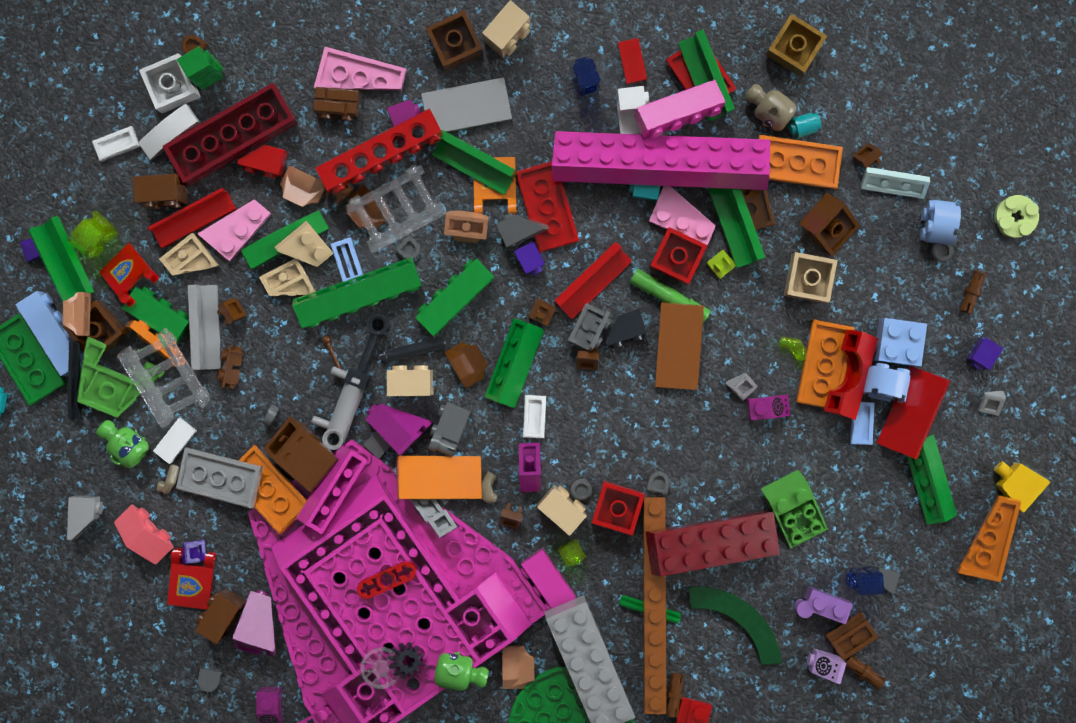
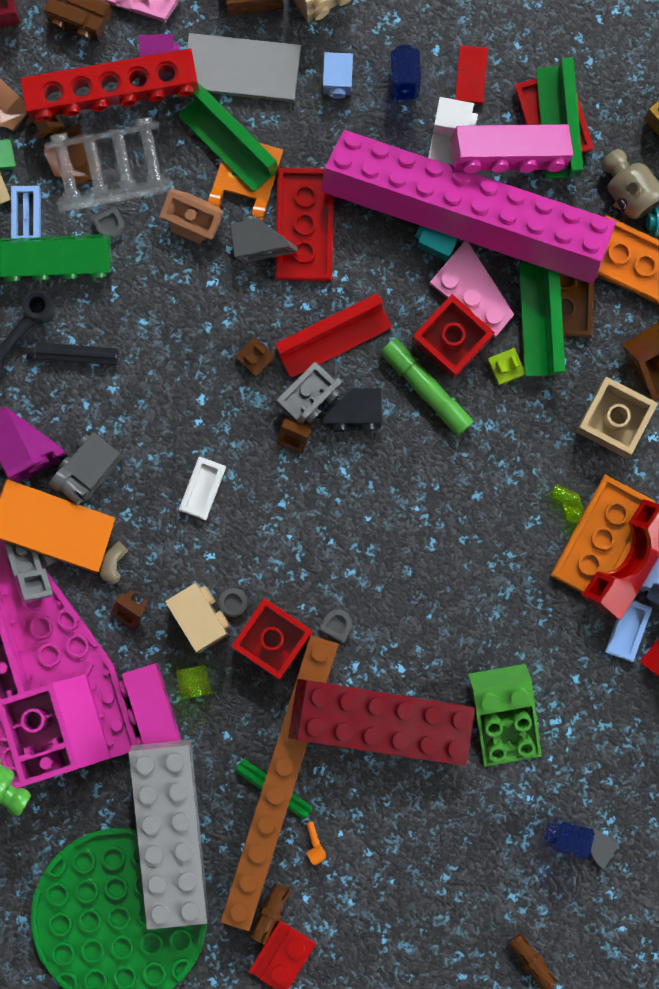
camera: 20 degrees right, 5 degrees down
(409, 382) = (53, 390): tan brick -> none
(454, 297) = (148, 301): green brick -> none
(467, 363) = (137, 392): reddish brown slope -> none
(514, 363) = (198, 411): green panel -> none
(516, 667) = (72, 810): nougat slope -> none
(529, 467) = (174, 552): magenta slope -> none
(530, 259) = (260, 283): dark purple brick -> none
(537, 91) = (337, 74): none -> light blue brick
(679, 346) = (419, 453): dark orange tile -> none
(693, 644) = (317, 853): none -> orange hand
(742, 386) = (485, 532): light grey slope -> none
(744, 614) = (395, 834): dark green tile -> none
(767, 407) = (510, 569): magenta slope -> none
(824, 605) = (505, 854): medium lavender hinge -> none
(826, 665) = (483, 935): lavender slope -> none
(852, 636) = (530, 907): reddish brown plate -> none

